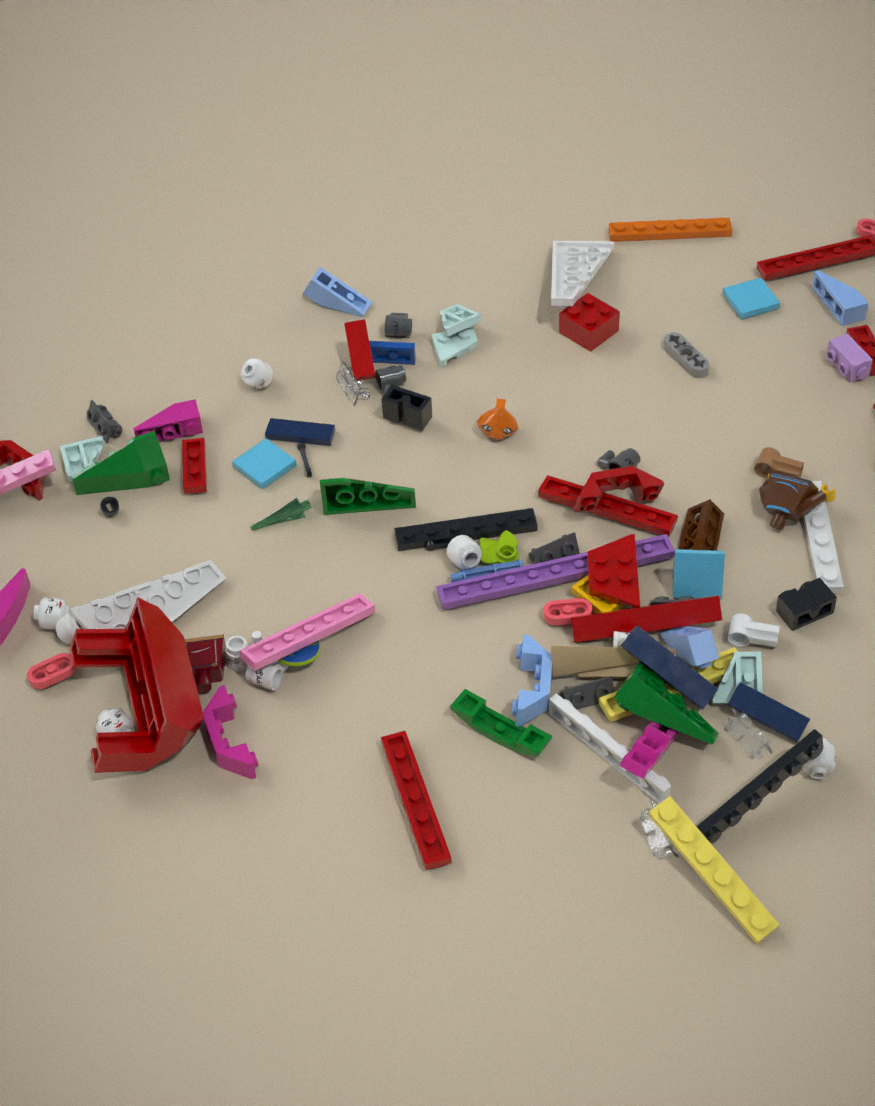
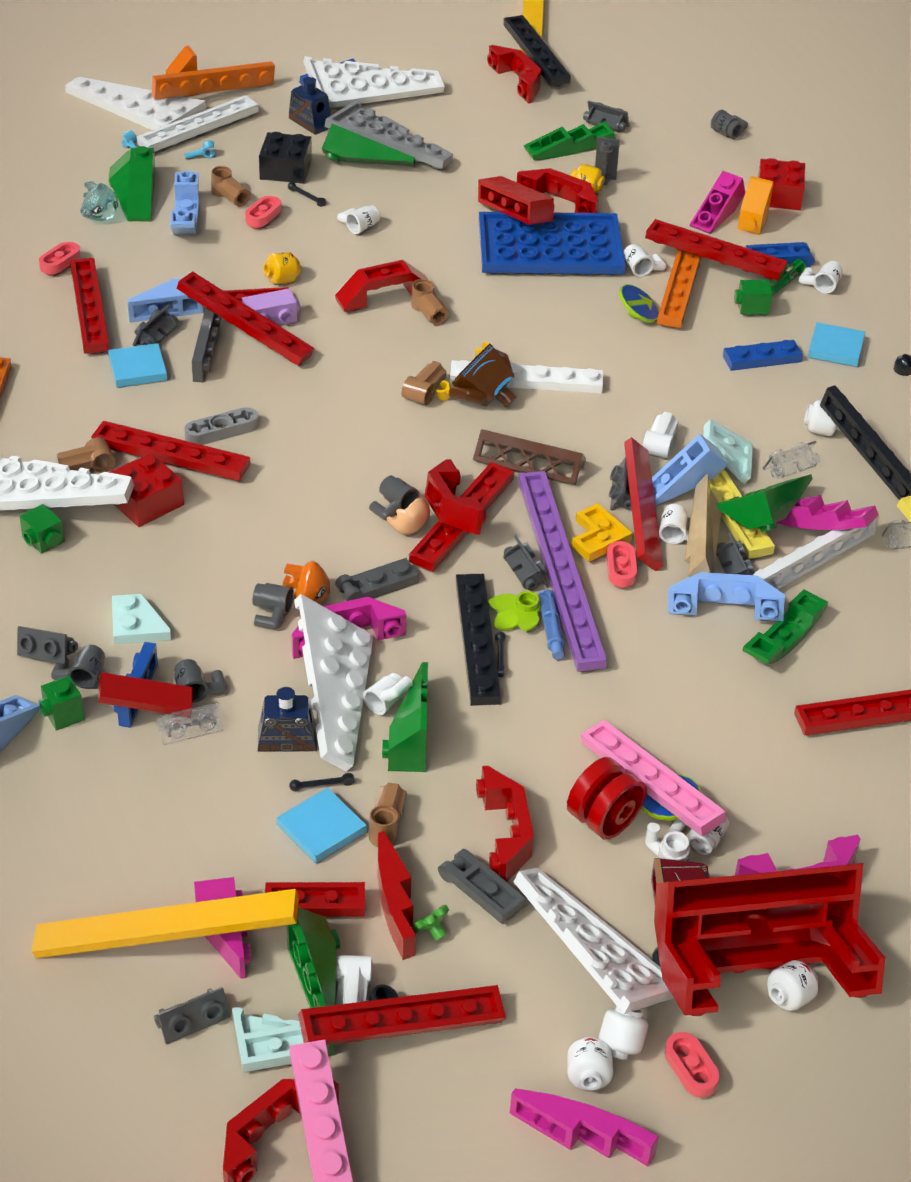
camera: 90 degrees left, 5 degrees down
(85, 511) = (402, 1015): none -> red plate
(129, 491) = (353, 978): none -> white piece
(154, 390) = (166, 923): none -> yellow tile
(174, 525) = (432, 923): none -> bright green plant
(203, 500) = (395, 897): none -> red slope
(210, 547) = (482, 885): none -> dark grey plate
(257, 373) = (148, 816): white head -> none
(262, 491) = (387, 812): none -> medium nougat piece
(265, 564) = (504, 793): none -> red slope
(279, 601) = (606, 798): none -> red wheel
(291, 511) = (422, 799): clear green piece -> none
(300, 431) = (267, 784): dark blue tile -> none
(346, 417) = (286, 723): none -> torso
(359, 311) = (61, 703): none -> green brick
(389, 475) = (386, 692): none -> white piece
(406, 405) = (266, 657): black brick -> none
(406, 445) = (337, 669): none -> white wing
(414, 302) = (44, 645): none -> dark grey hinge
(449, 431) = (385, 620): none -> dark pink slope
(458, 318) = (99, 604): light aqua wing -> none
(464, 552) = (528, 633): white head -> none
(483, 403) = (275, 599): none -> dark grey piece
(519, 465) = (378, 580): none -> dark grey plate
(534, 280) = (41, 528): none -> green brick
(586, 467) = (412, 518): none -> light nougat hair
(615, 572) = (576, 514): red wing -> none
(623, 291) = (94, 456): none -> medium nougat piece
(643, 331) = (173, 450): none -> red plate
(669, 667) = (725, 484): dark blue tile -> none
(698, 573) = (589, 453): medium azure tile -> none
(768, 712) = (767, 440): dark blue tile -> none
(790, 327) = (205, 345): none -> dark grey plate
(806, 605) = (625, 396): black brick -> none
(809, 299) = (160, 321): none -> dark grey hinge
(816, 339) = (245, 318): none -> red plate

